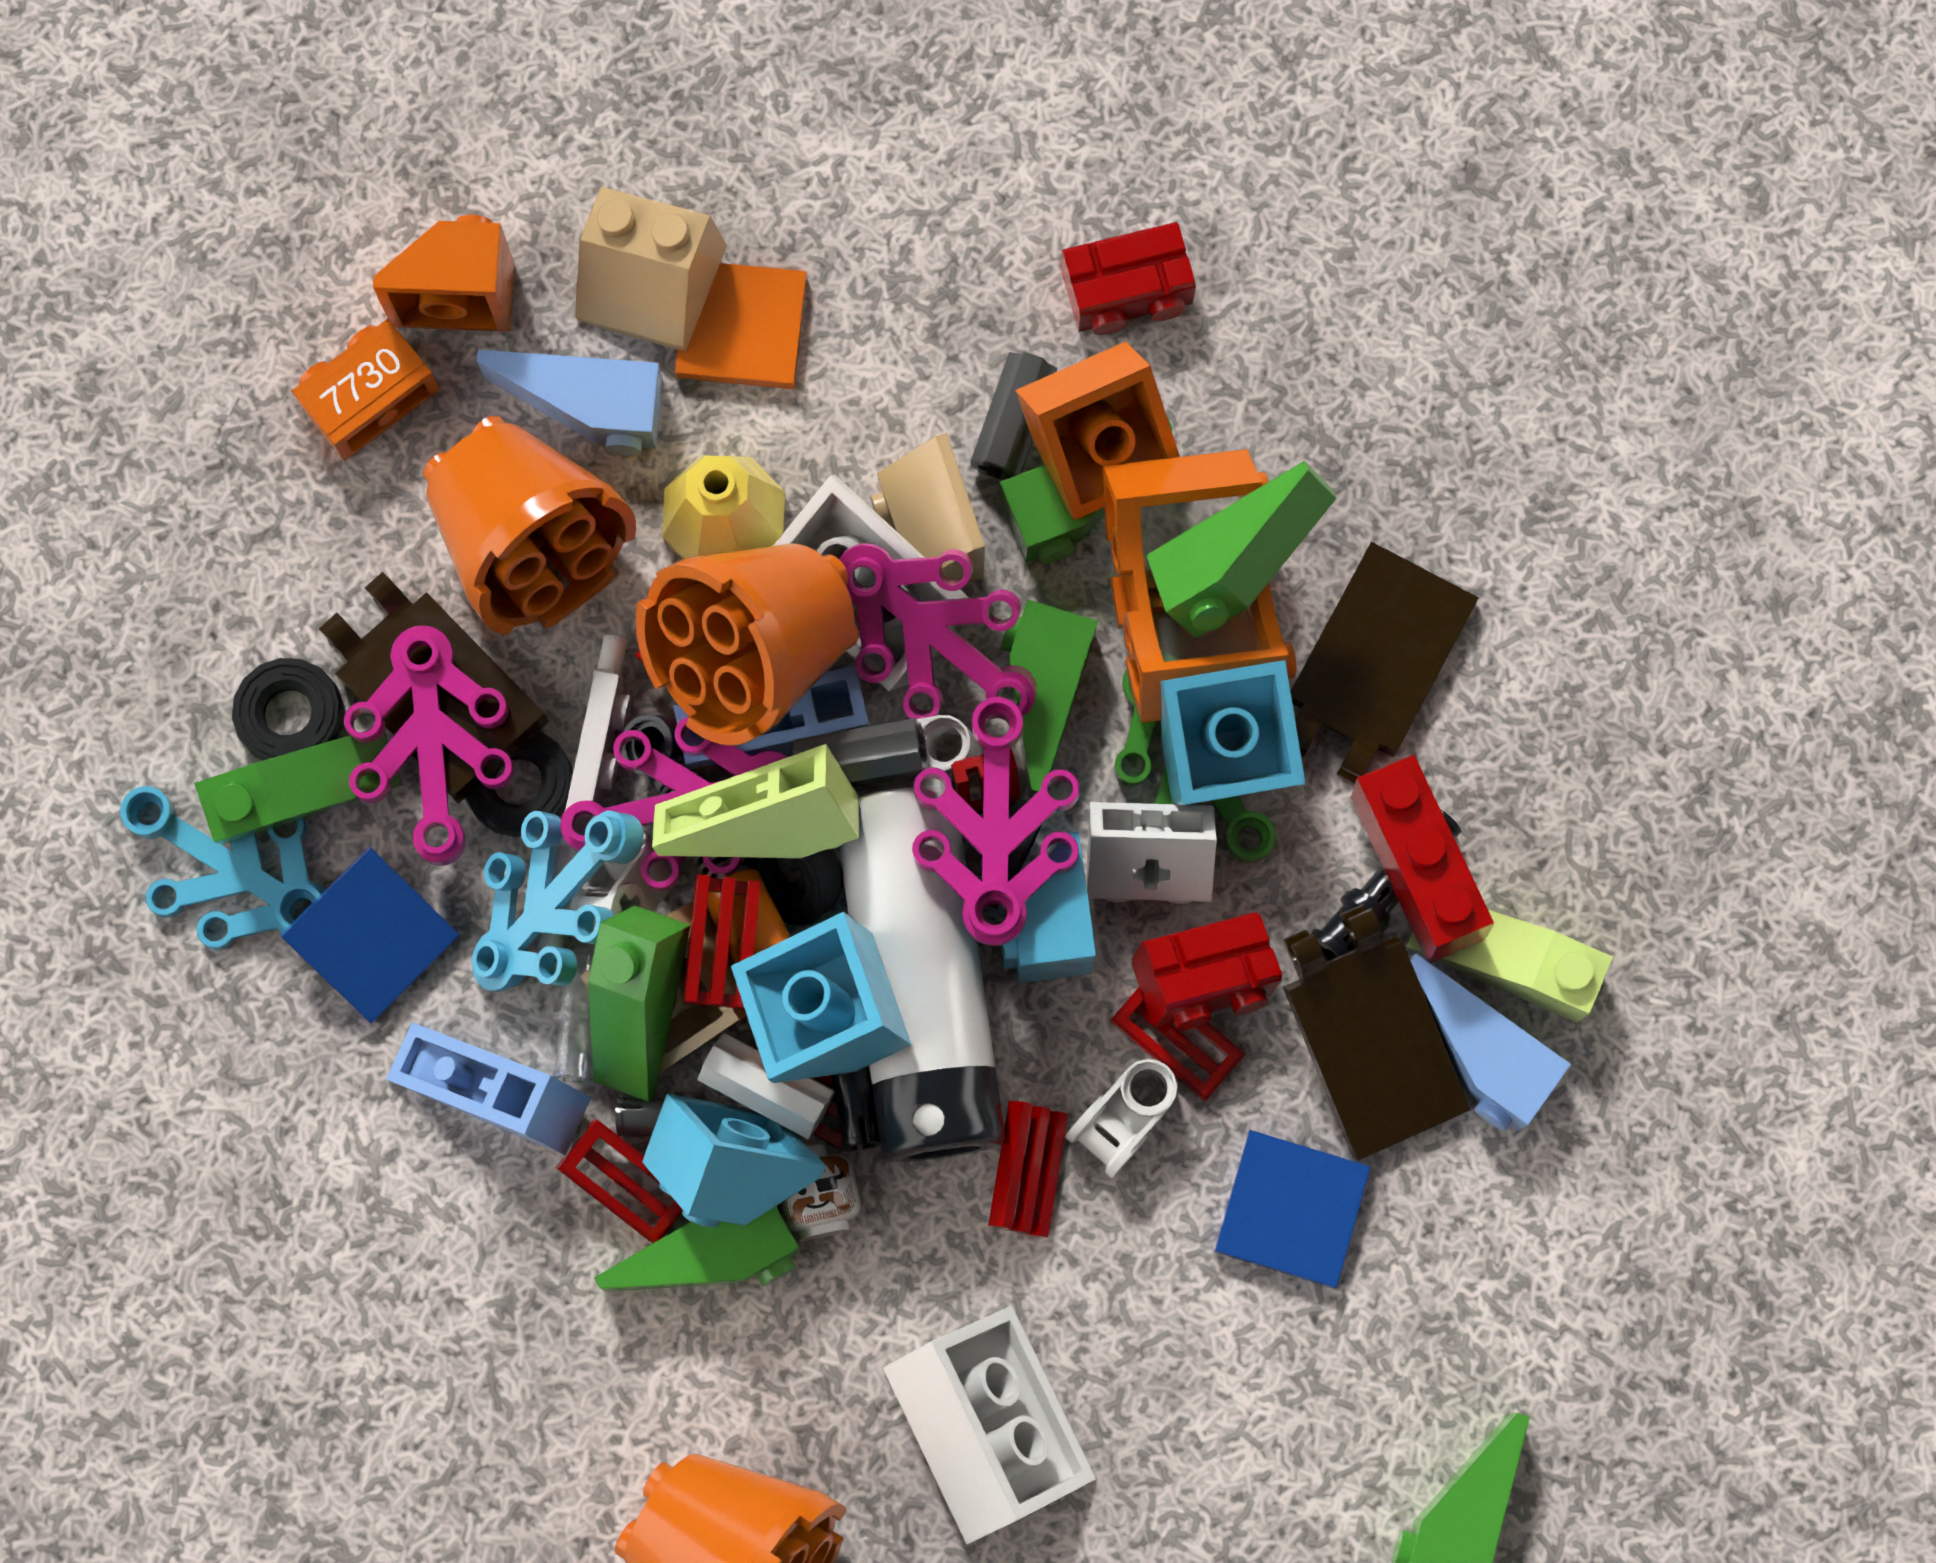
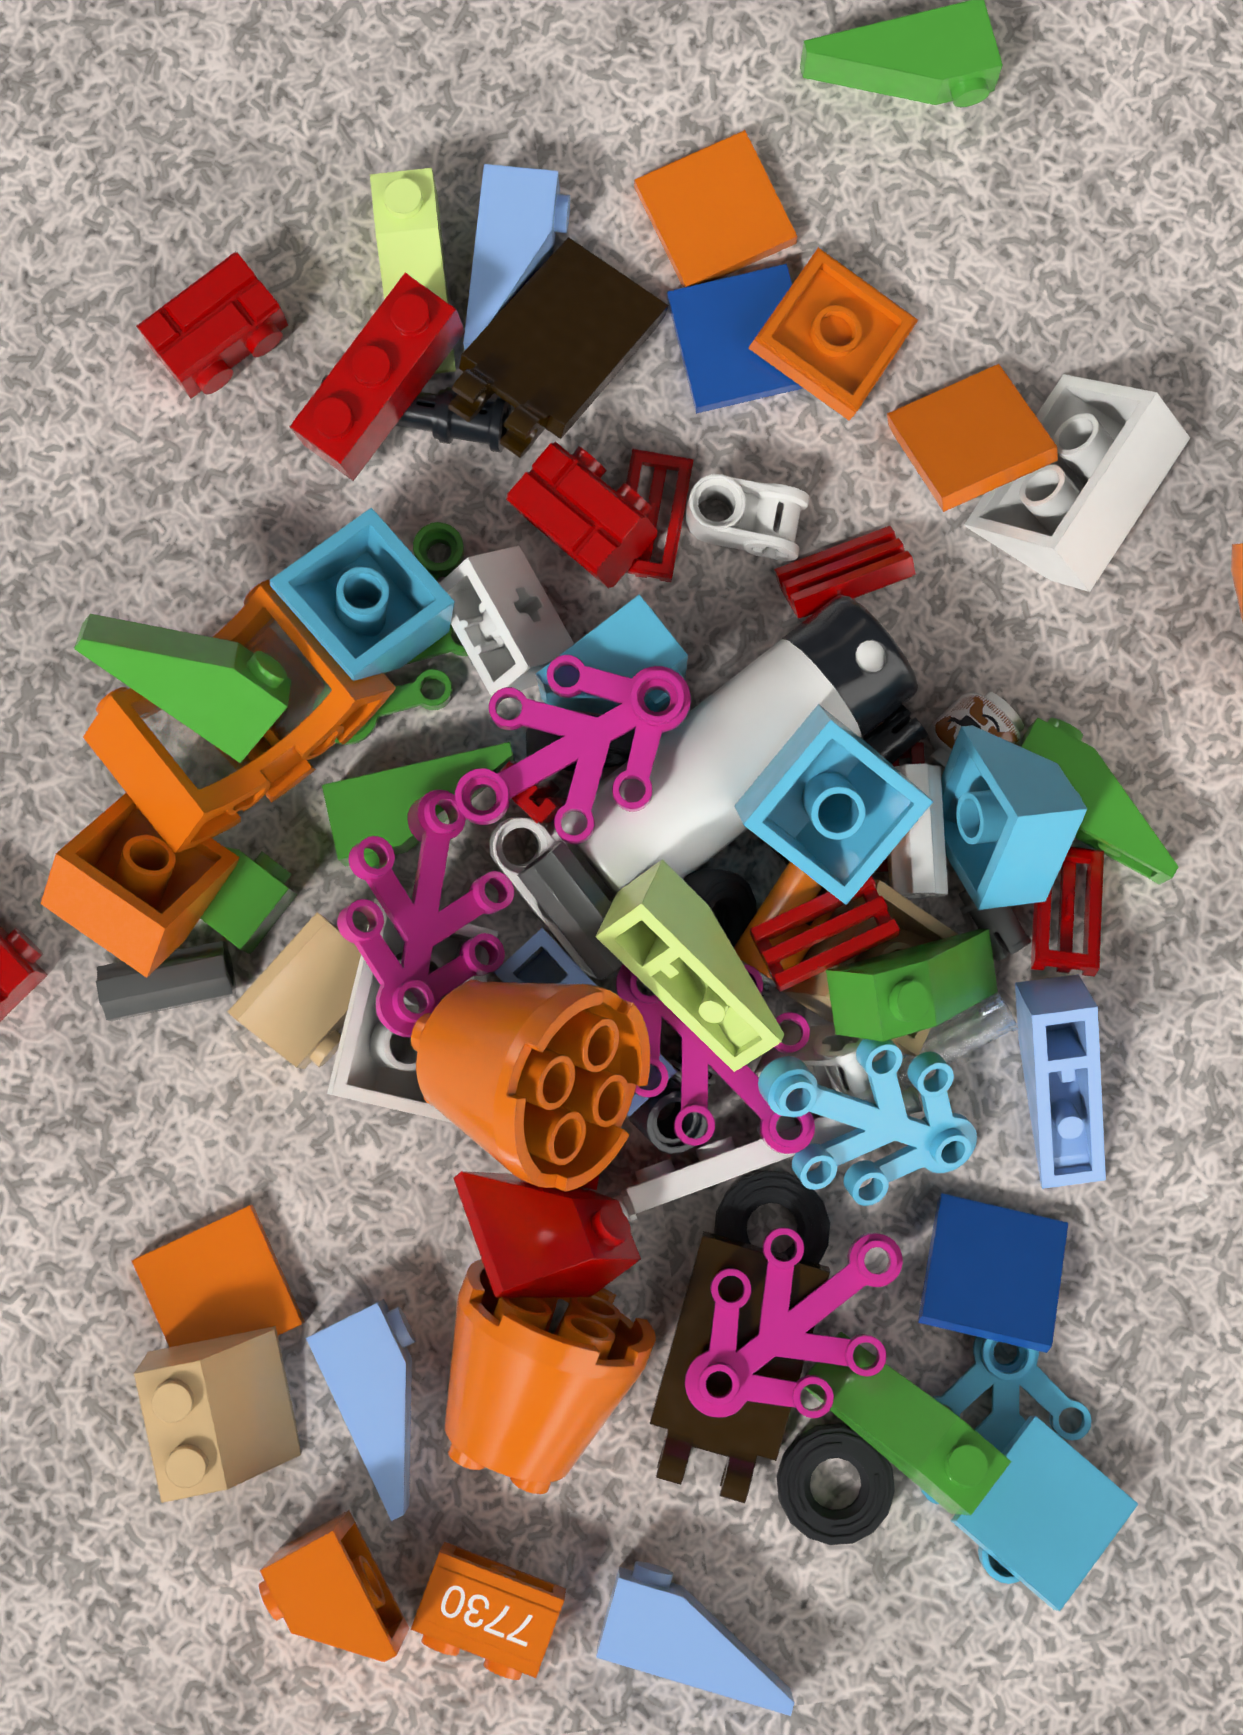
camera: 115 degrees left, 5 degrees up
(157, 858) = (1047, 1514): none -> medium azure tile
(249, 520) = (673, 1636): none -> light blue slope
(608, 579) = (545, 1238): none -> red slope
(722, 507) = (426, 1164): light yellow cone -> none
(1081, 1351) = (972, 437): none -> orange tile
(1247, 1288) = (833, 334): none -> orange tile
(1378, 656) = (204, 530): dark brown tile -> none
(1423, 1256) = (715, 211): none -> orange tile
(1556, 759) = (214, 326): none -> red brick

